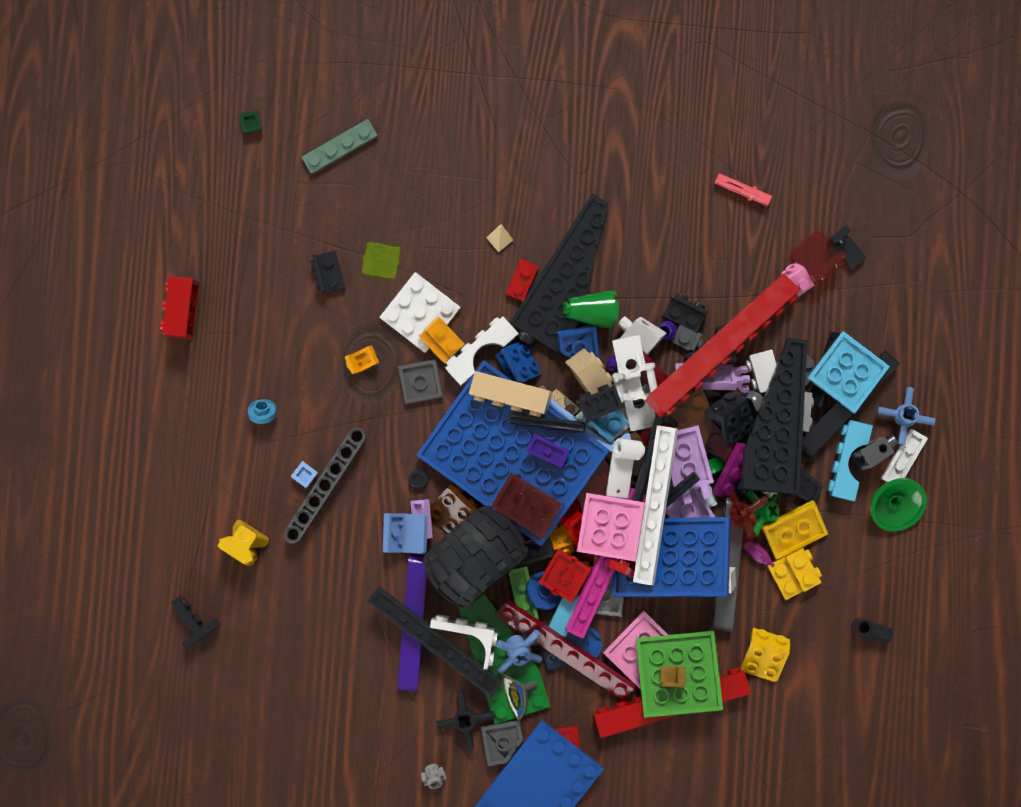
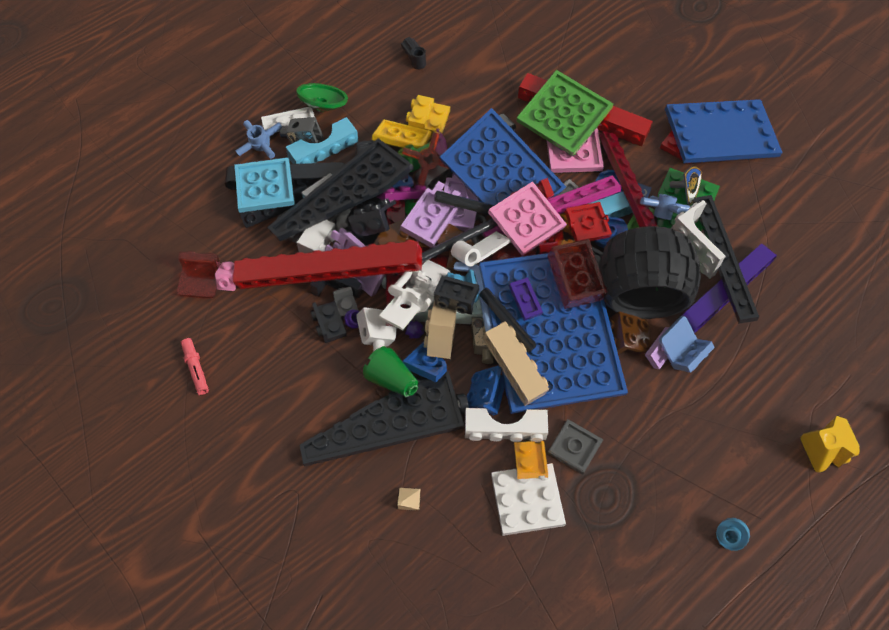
camera: 135 degrees left, 25 degrees down
(304, 474) = (733, 456): light blue plate -> none
(317, 490) = (730, 429): dark grey beam -> none
(328, 272) = (577, 602): black bracket -> none
(361, 360) = (610, 502): light orange bracket -> none
(381, 260) = (522, 571): clear neon green piece -> none
(418, 479) = (639, 379): black tile -> none
(433, 776) = (793, 187): light grey gear -> none
(467, 729) = (740, 202): black bar -> none
(501, 741) = (724, 173): dark grey plate -> none
(522, 280) = (423, 451): red plate -> none
(655, 505) = (479, 205): white plate -> none
(673, 676) = (572, 107): pearl gold panel -> none
(766, 654) = (491, 87): yellow bracket -> none
(843, 242) = (172, 269): black bracket -> none

